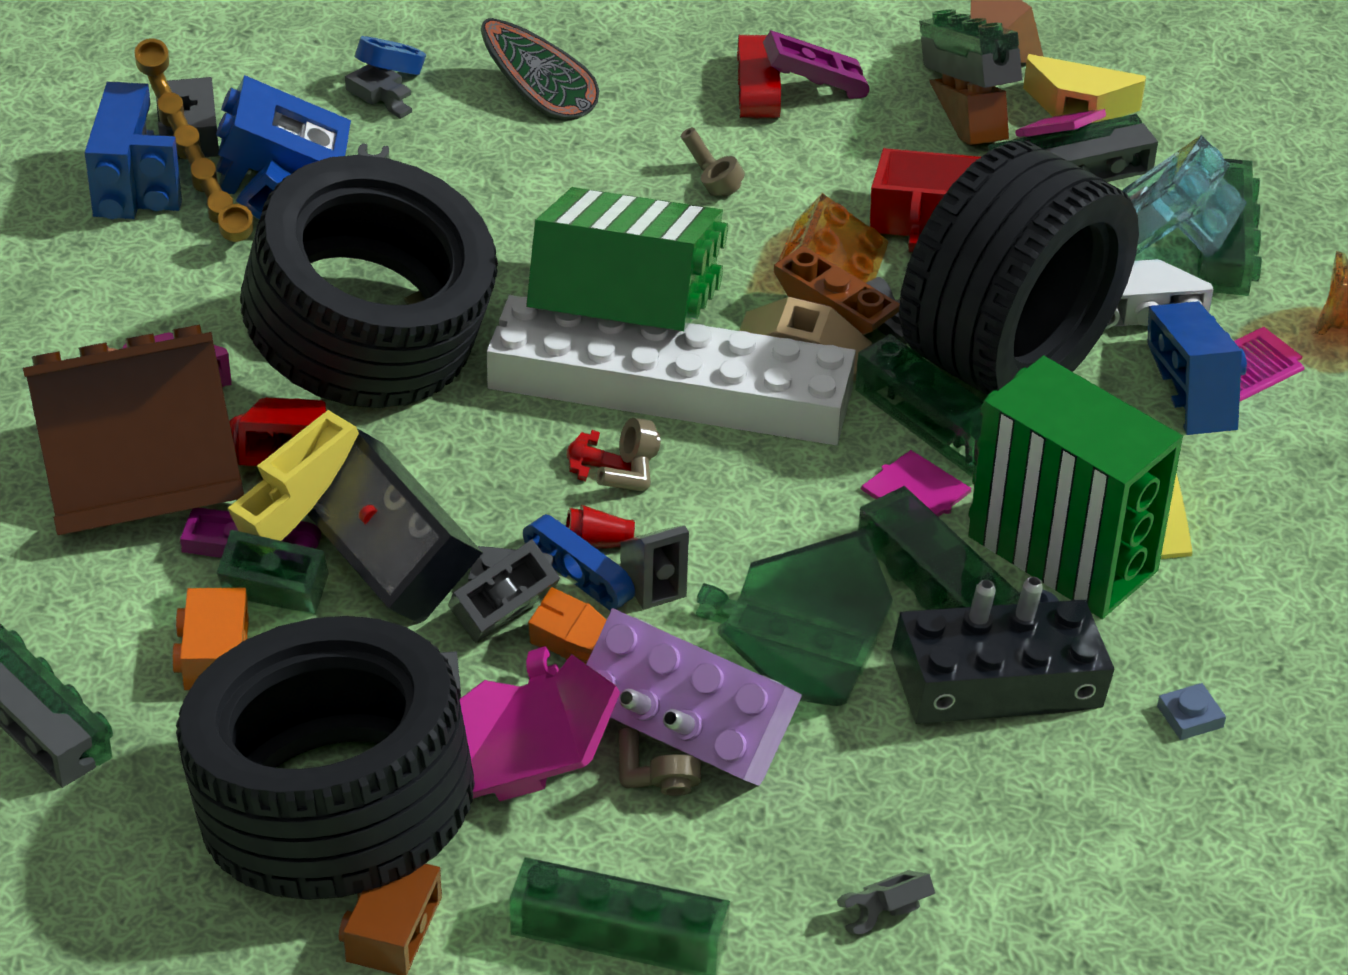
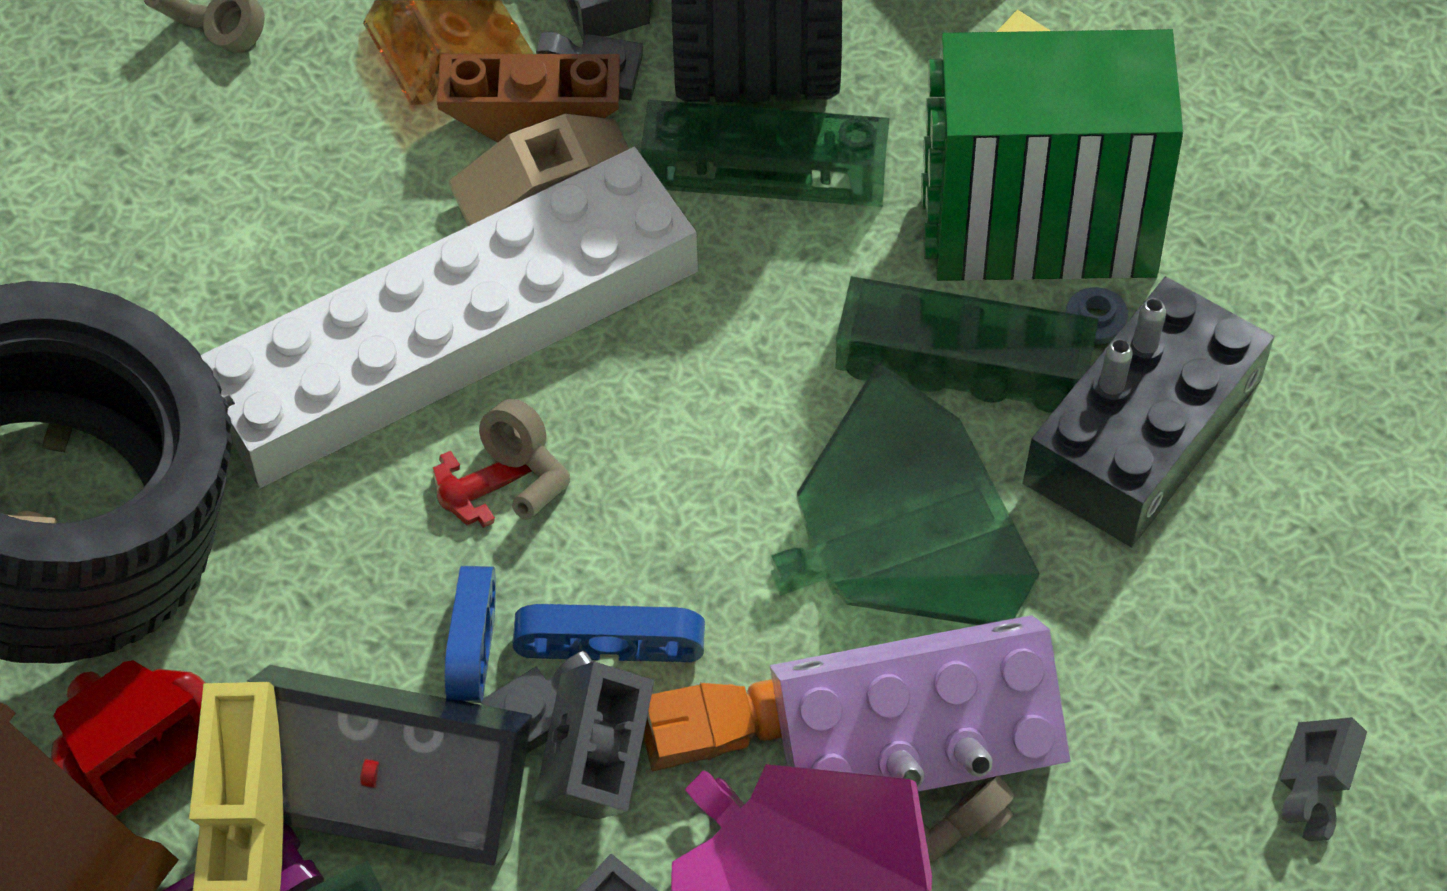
camera: 40 degrees left, 15 degrees up
(501, 505) = (470, 634): none -> blue beam
(599, 528) = (584, 574): red cone -> none
(626, 258) = (297, 217): green brick -> none
(657, 565) = (699, 568): dark grey slope -> none
(924, 479) = (822, 256): dark pink piece -> none
(1191, 711) = (1347, 319): sand blue plate -> none

